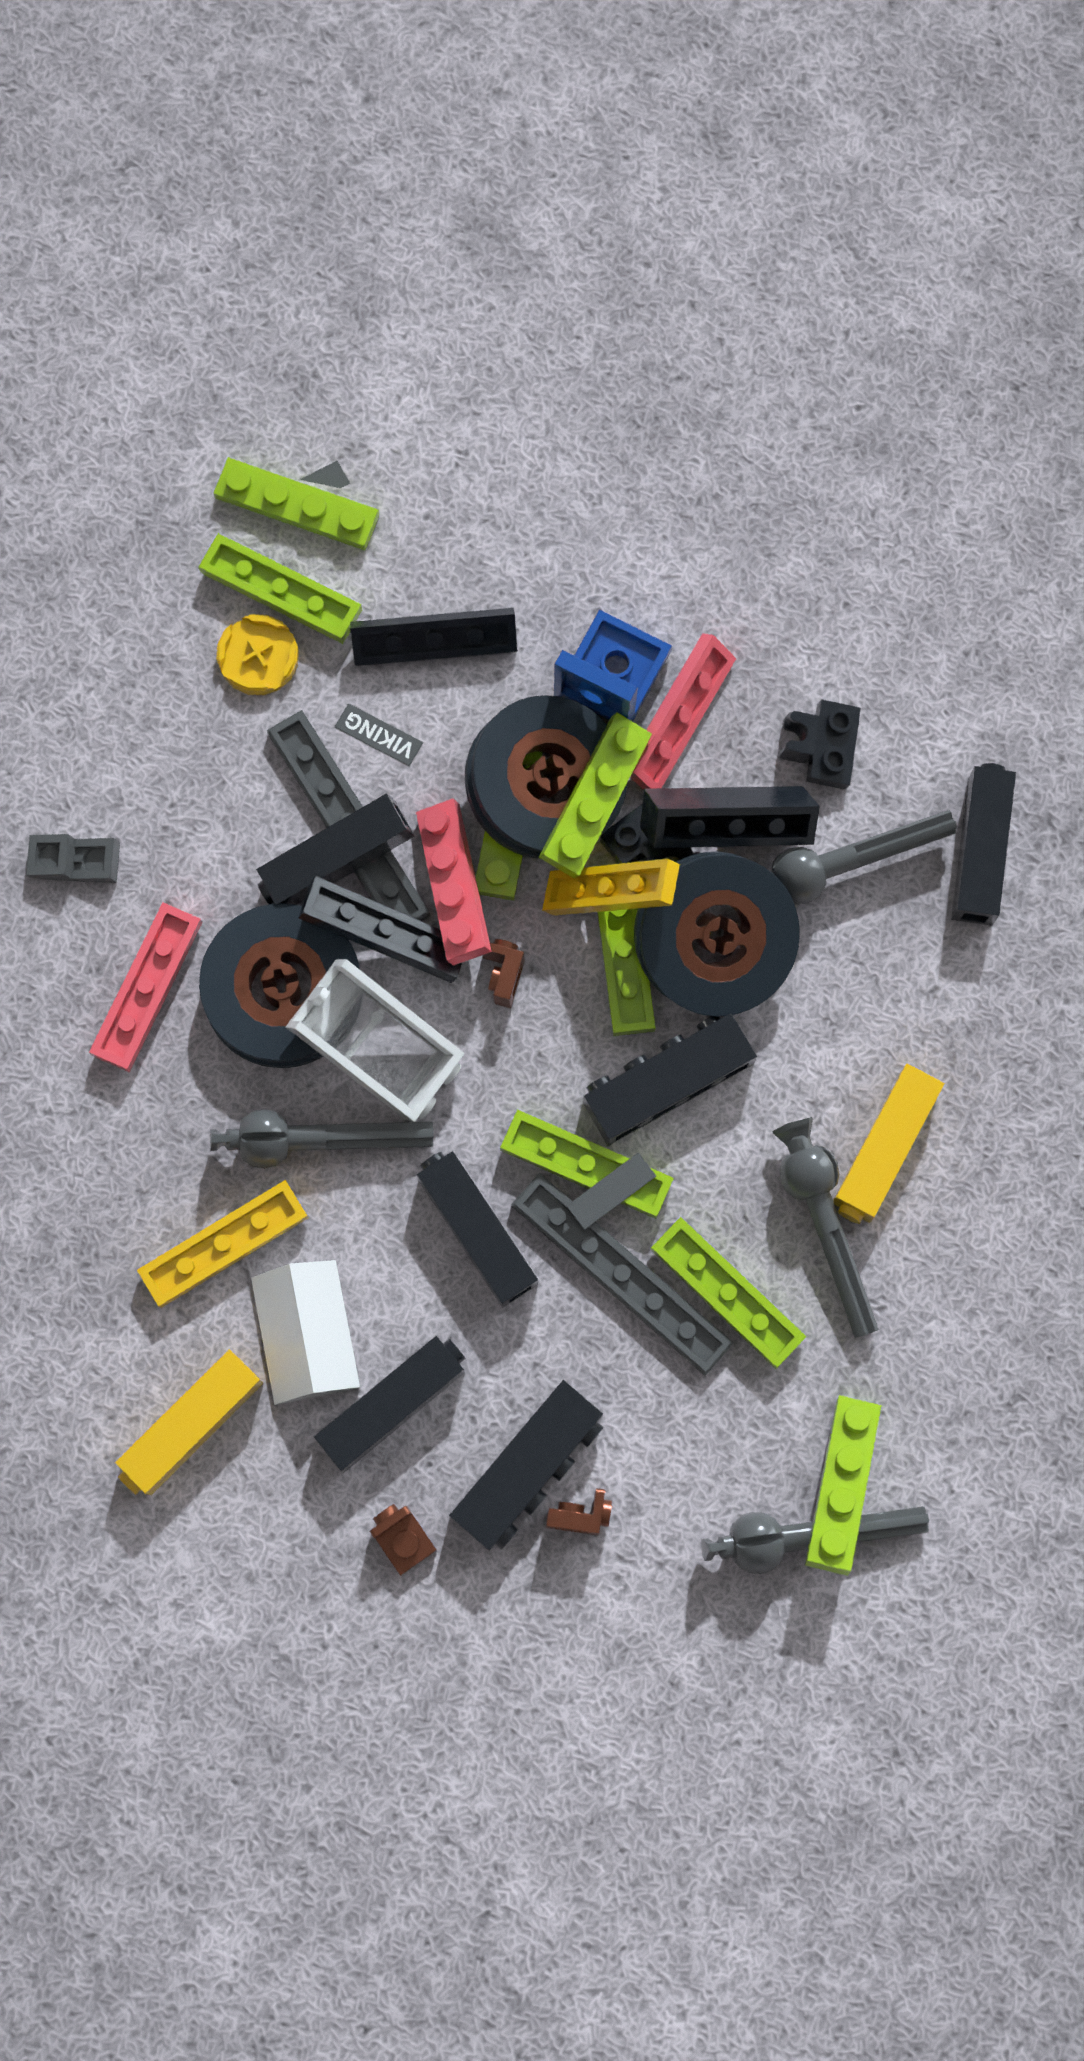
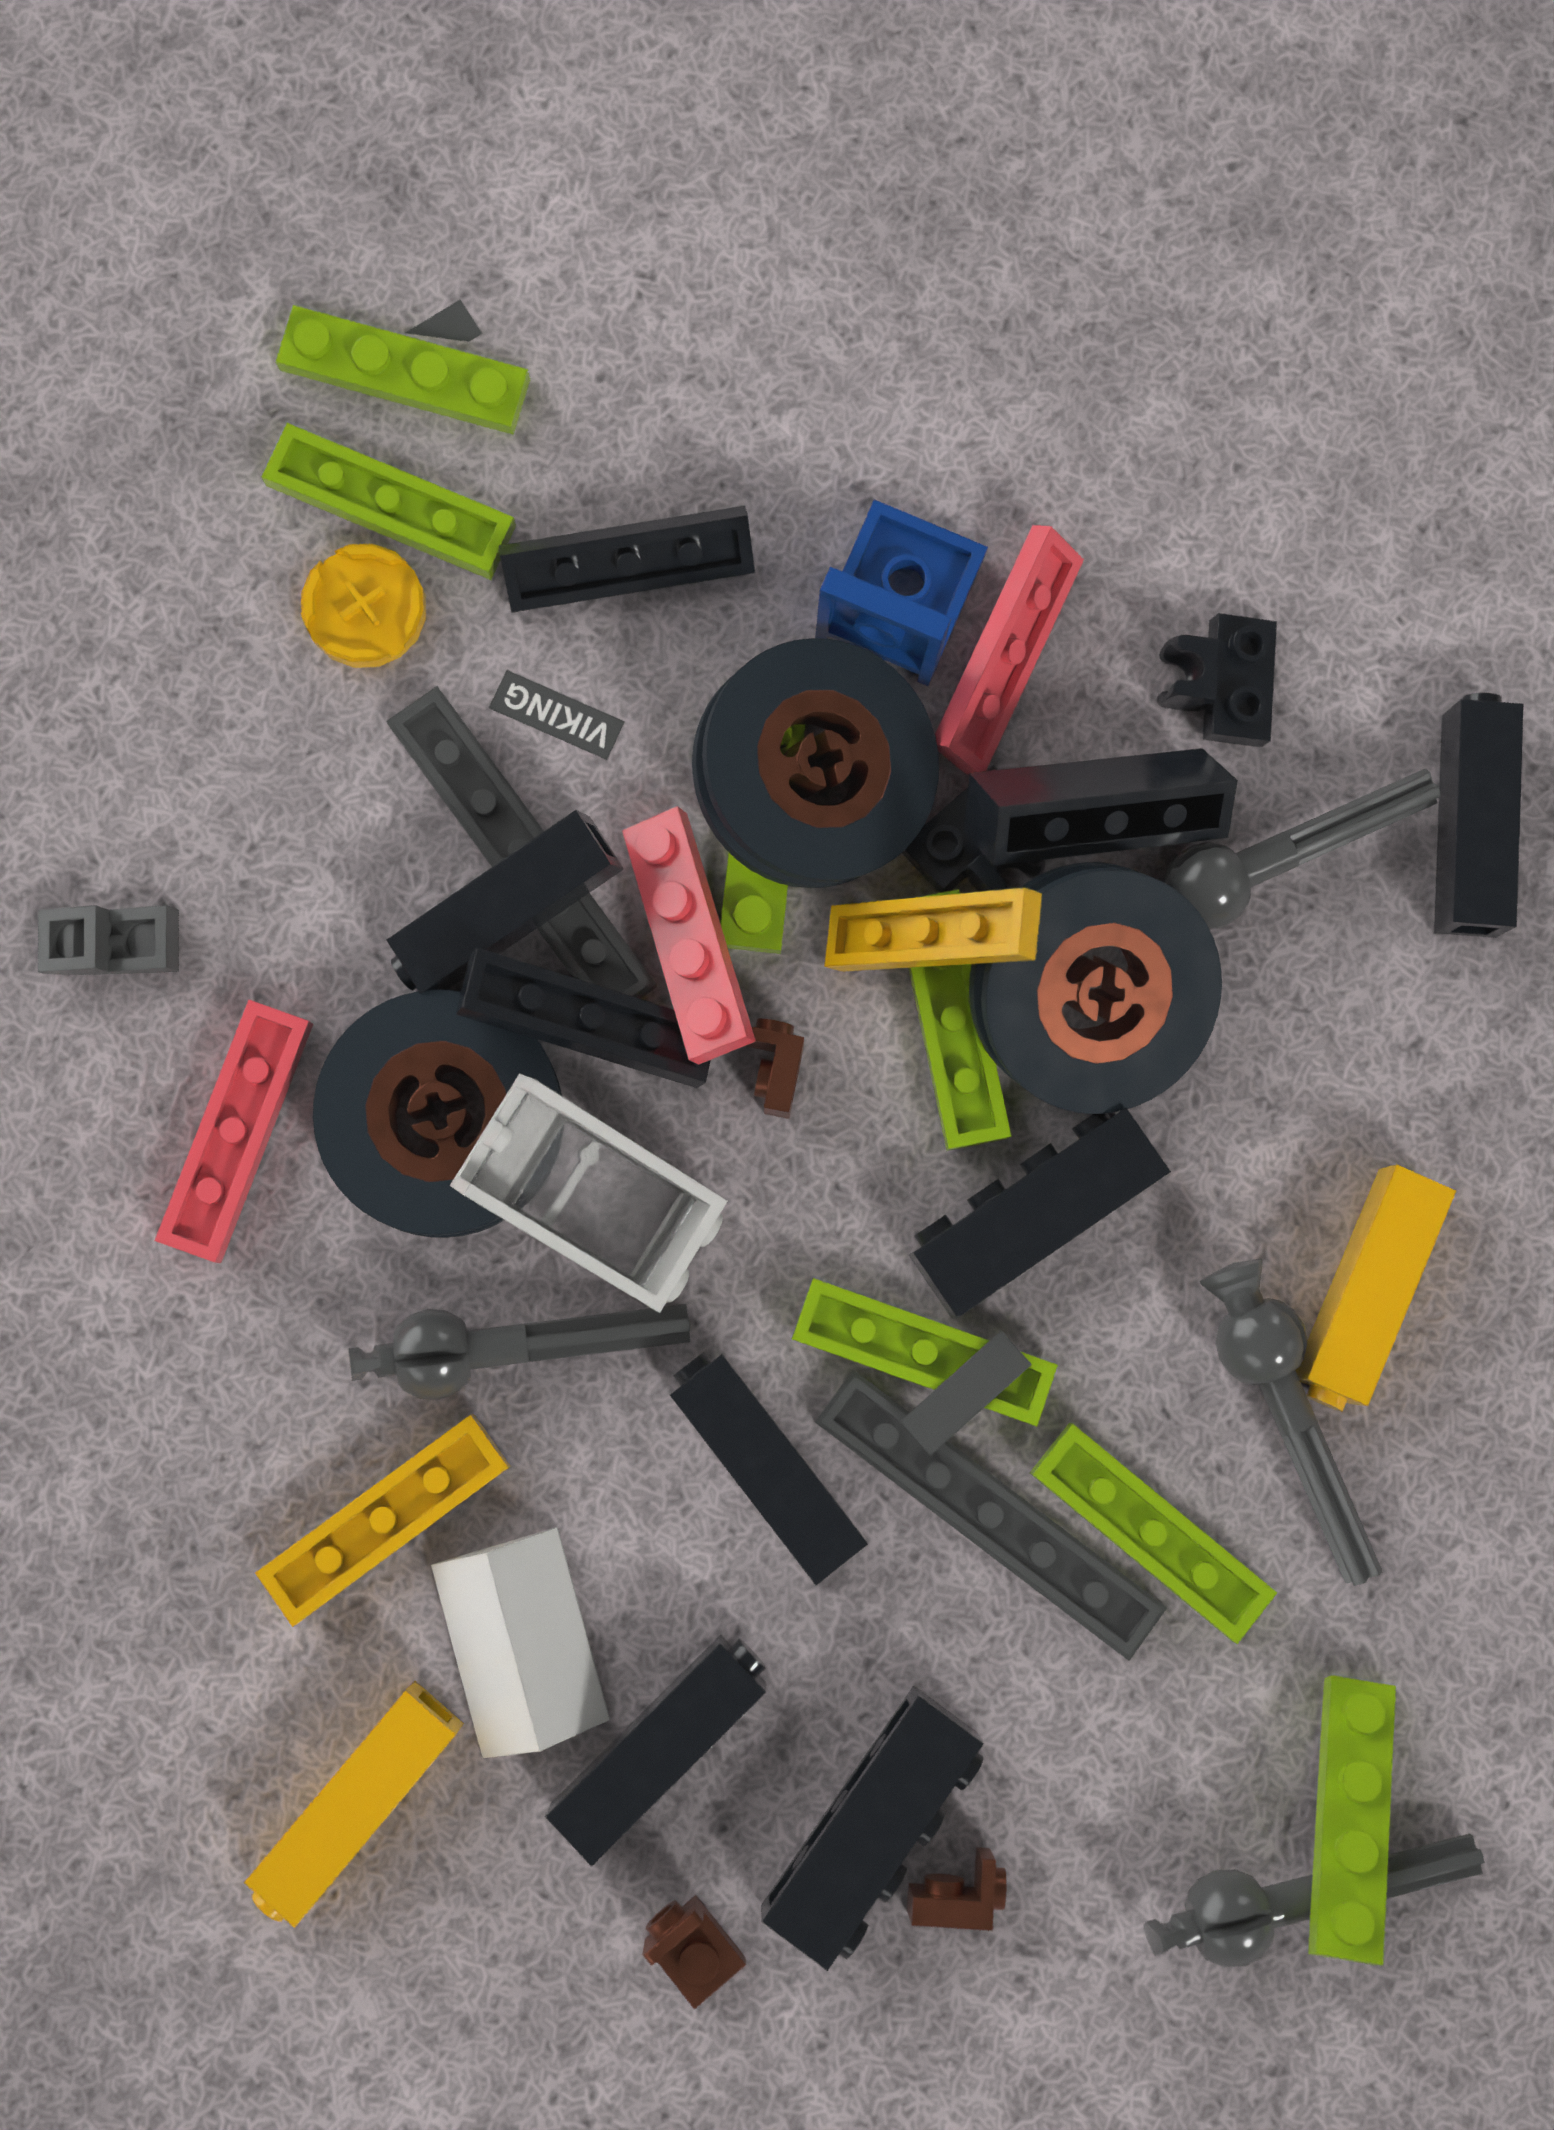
camera: 10 degrees left, 5 degrees up
(595, 795) = (894, 788): lime plate -> none

